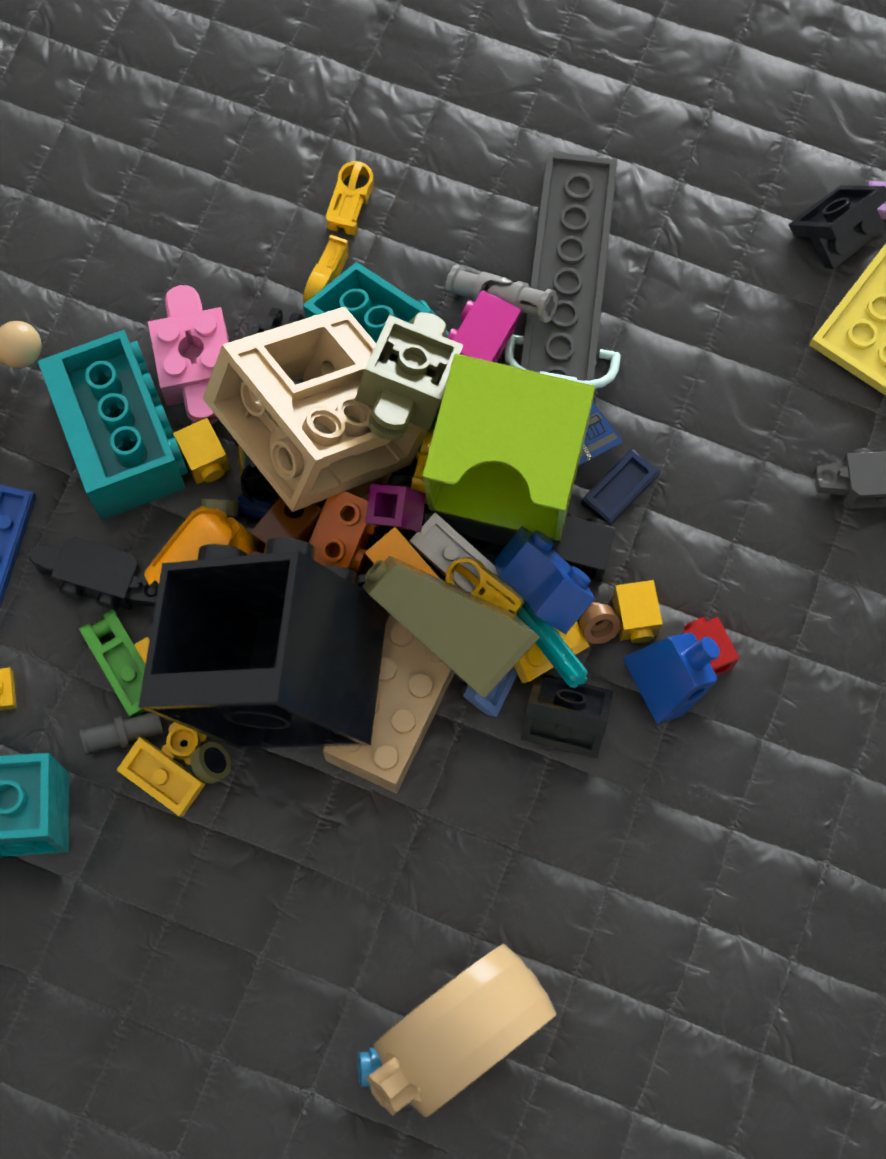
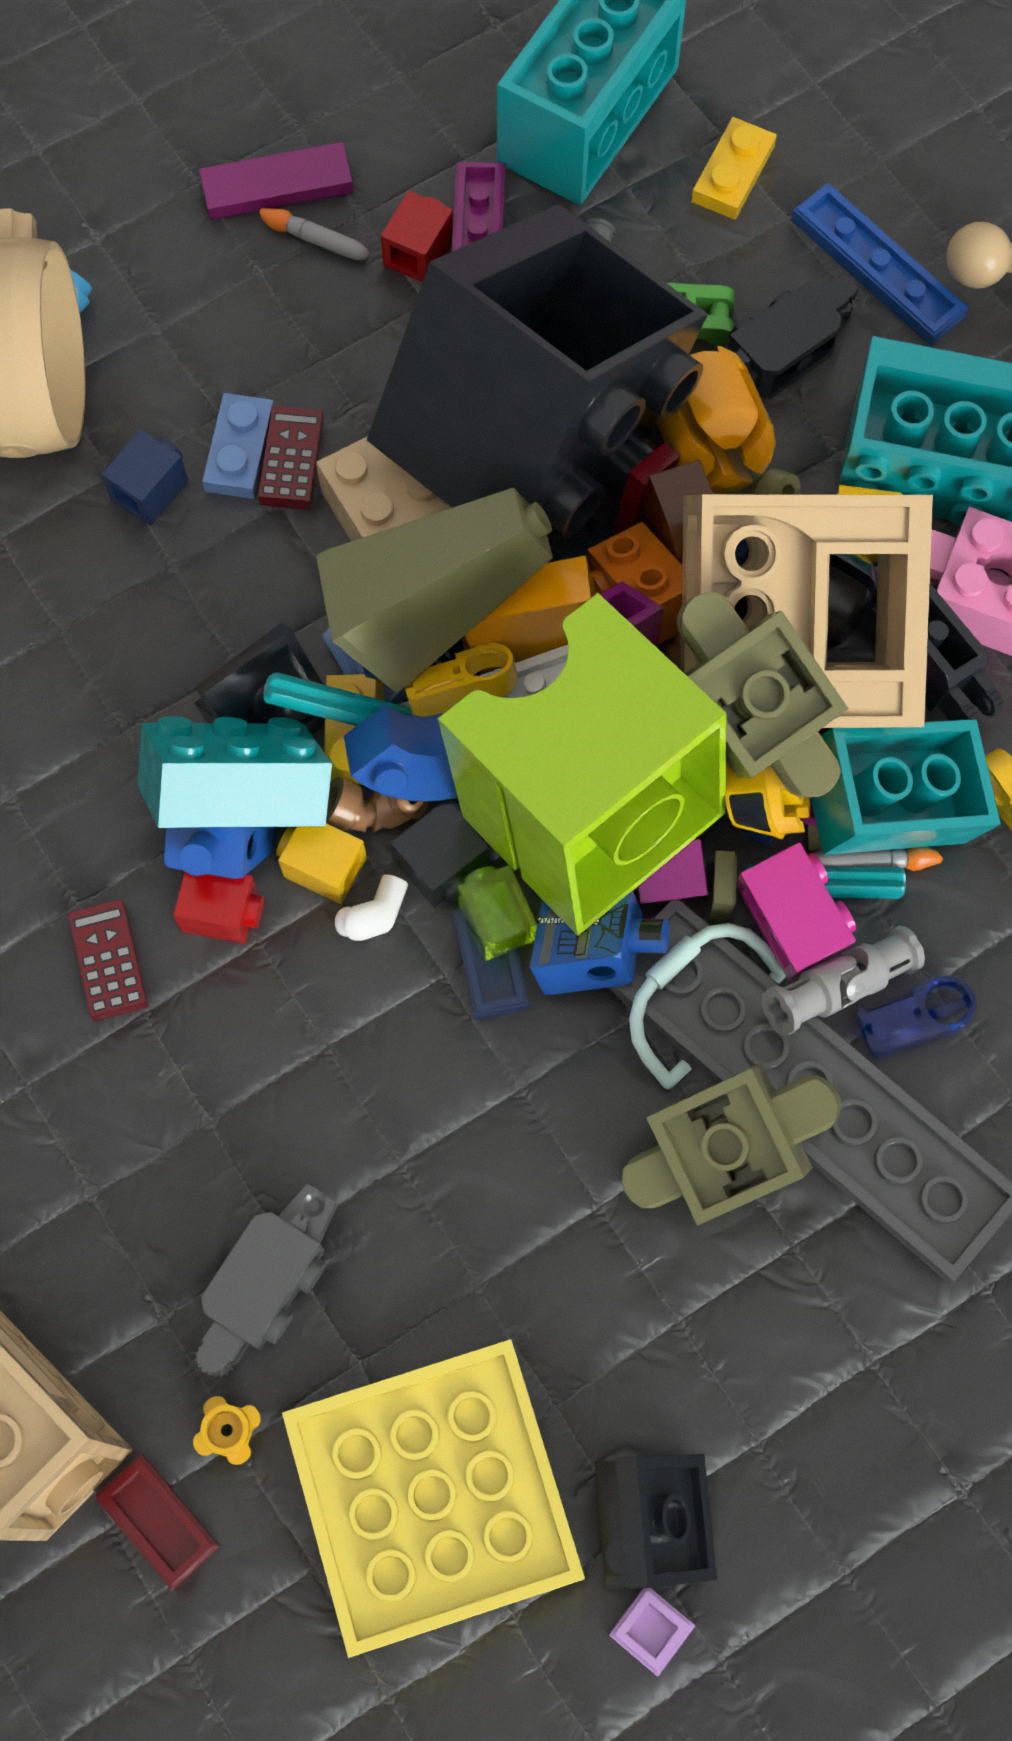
camera: 125 degrees right, 0 degrees up
(129, 825) = (477, 201): none -> magenta tile
(168, 856) = (416, 235): none -> red brick
(182, 995) = (276, 180): none -> magenta tile
(212, 964) = (283, 221): none -> light grey piece
(388, 825) = (291, 457): none -> dark red tile
(403, 866) = (238, 446): none -> medium blue plate
(471, 902) = (146, 476): none -> dark blue brick
(495, 257) = (909, 1023): none -> clear blue piece
(600, 487) = (496, 911): none -> clear neon green brick
(641, 674) = (233, 773): none -> brick
(645, 562) = (375, 916): none -> white arm
(648, 278) = (731, 1143): none -> olive brick
(783, 692) = (108, 960): none -> dark red tile

